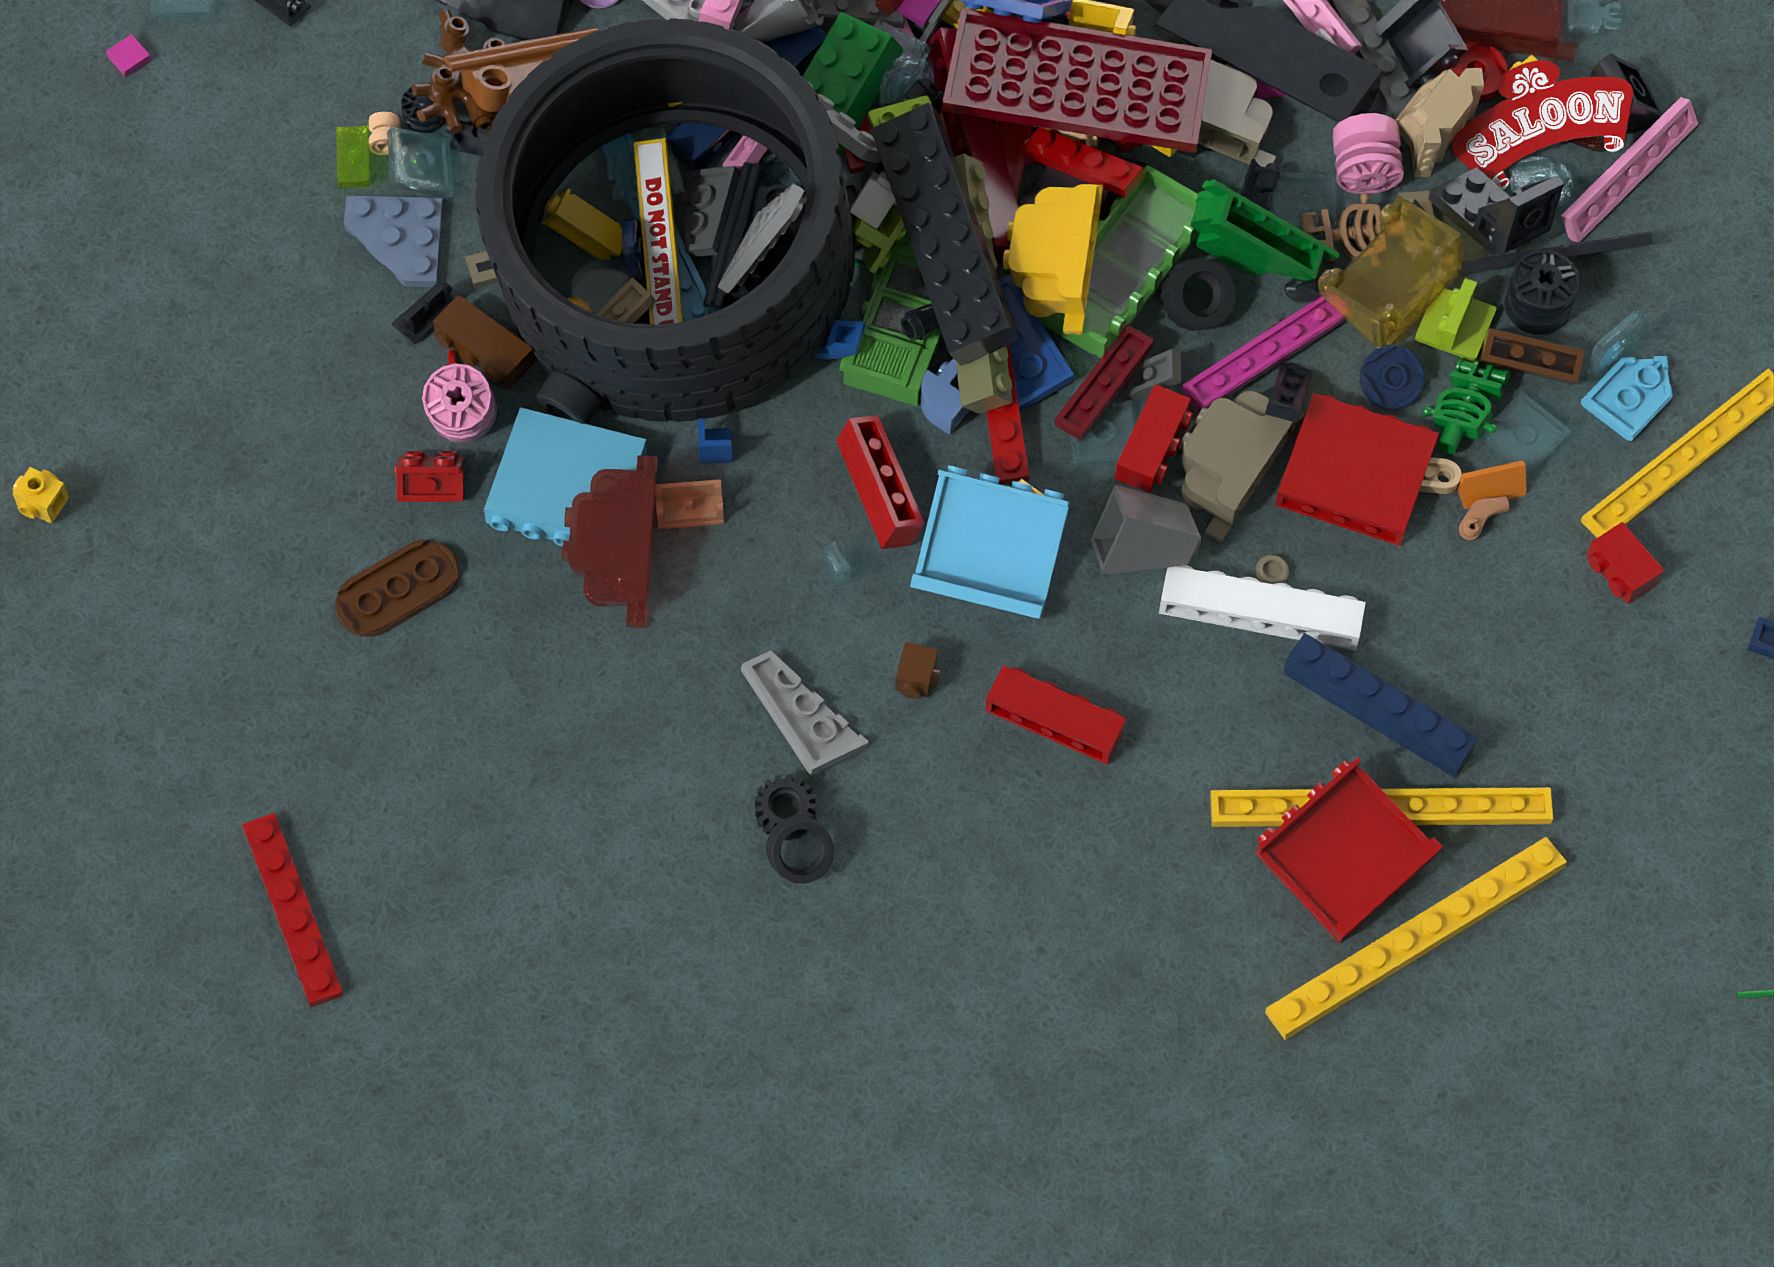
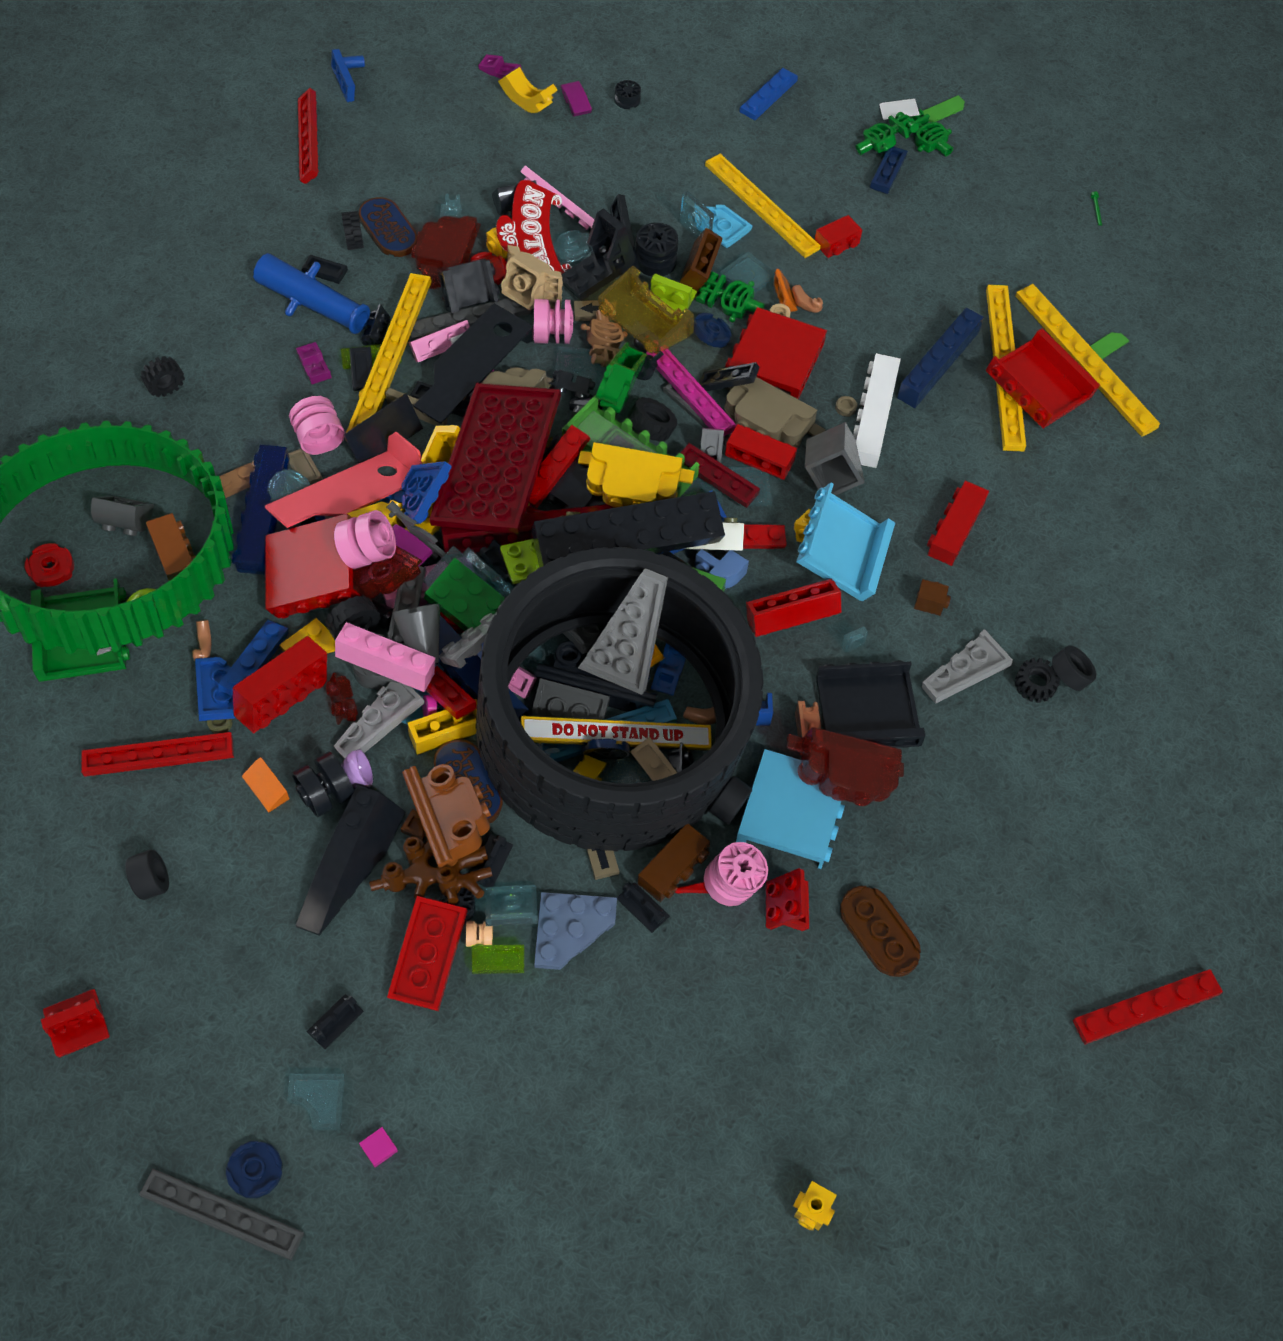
camera: 90 degrees left, 5 degrees down
(354, 77) = (427, 953): none -> red plate
(730, 584) = (870, 702): none -> black panel
(1453, 977) = (1109, 344): none -> bright green piece

